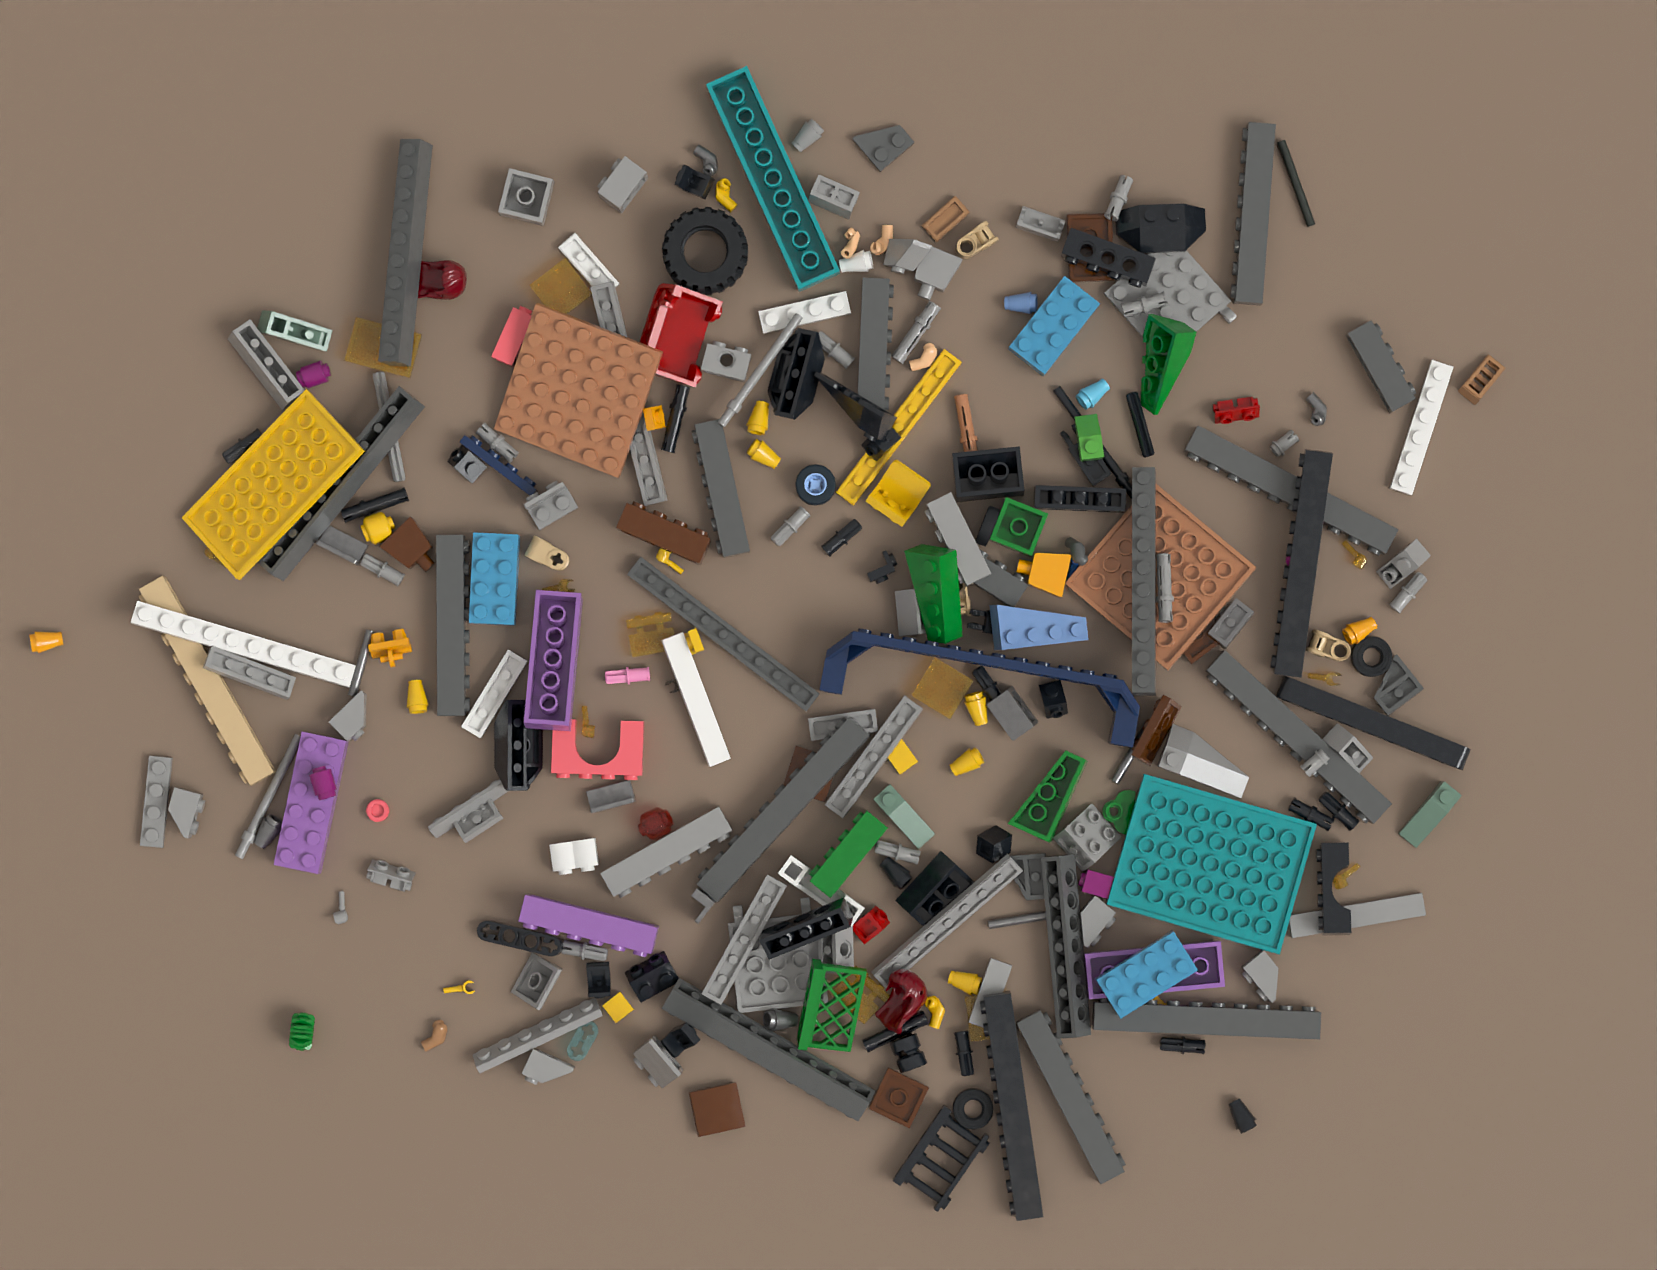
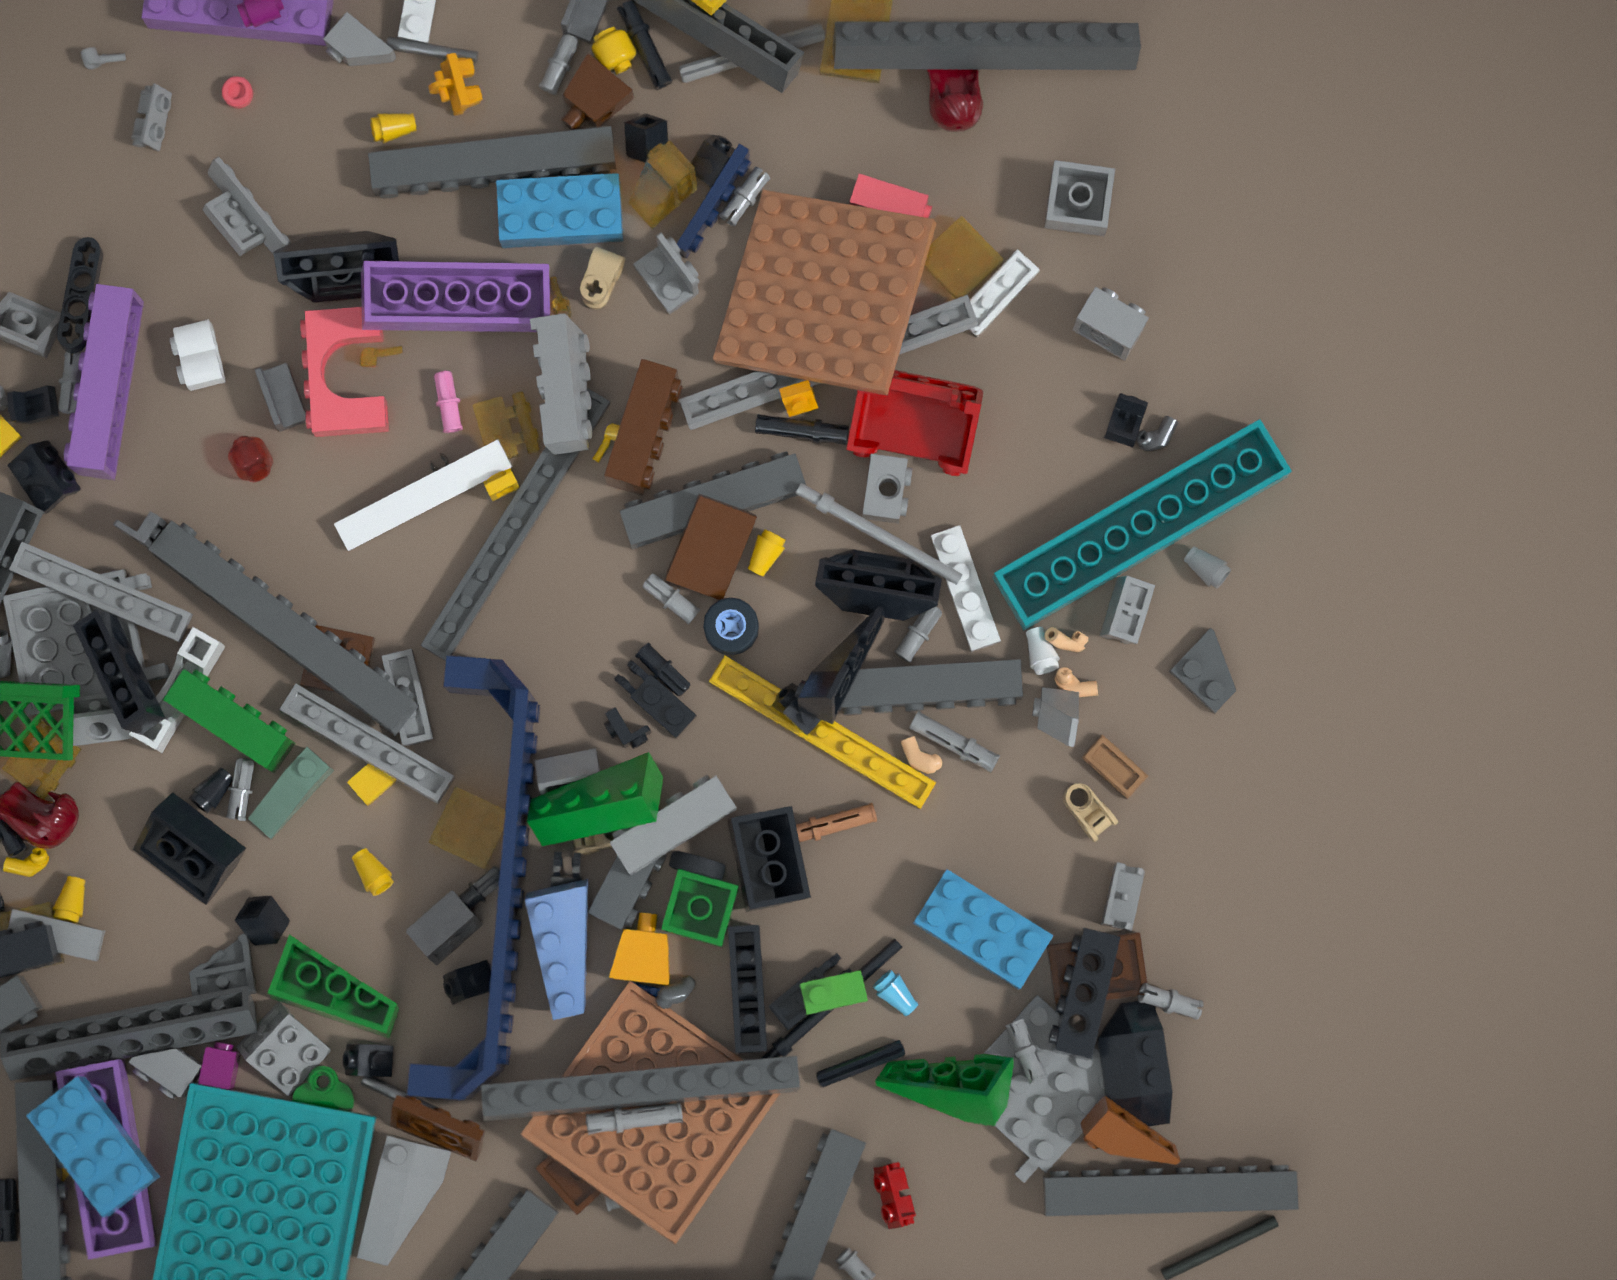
camera: 85 degrees right, 5 degrees down
(446, 510) = (643, 135): none -> black panel
(460, 988) = (8, 224): yellow hand -> none
(485, 500) = (663, 184): none -> clear yellow wedge
(494, 693) = (406, 227): white plate -> none
(626, 587) = (563, 383): none -> light grey wedge
(667, 851) = (213, 477): light grey brick -> none
(700, 220) = (1042, 403): black tyre -> none
(722, 194) = (1113, 462): yellow arm -> none
(757, 493) = (710, 547): none -> reddish brown tile
(758, 420) = (813, 541): yellow cone -> none
(864, 543) = (658, 701): none -> black hinge
(870, 924) = (138, 763): red bracket -> none
(898, 492) = (729, 739): yellow bracket -> none
(936, 272) = (1040, 759): light grey torso -> none
(949, 919) = (153, 868): light grey tile -> none
(976, 707) = (448, 877): yellow cone -> none
(1016, 920) = (161, 962): flat silver bar -> none
(1022, 302) = (1011, 885): medium blue cone -> none
(1102, 777) = (368, 1060): none -> black bracket
(1211, 240) = (1124, 1135): none -> dark orange slope
(1231, 623) = (596, 1217): flat silver panel -> none

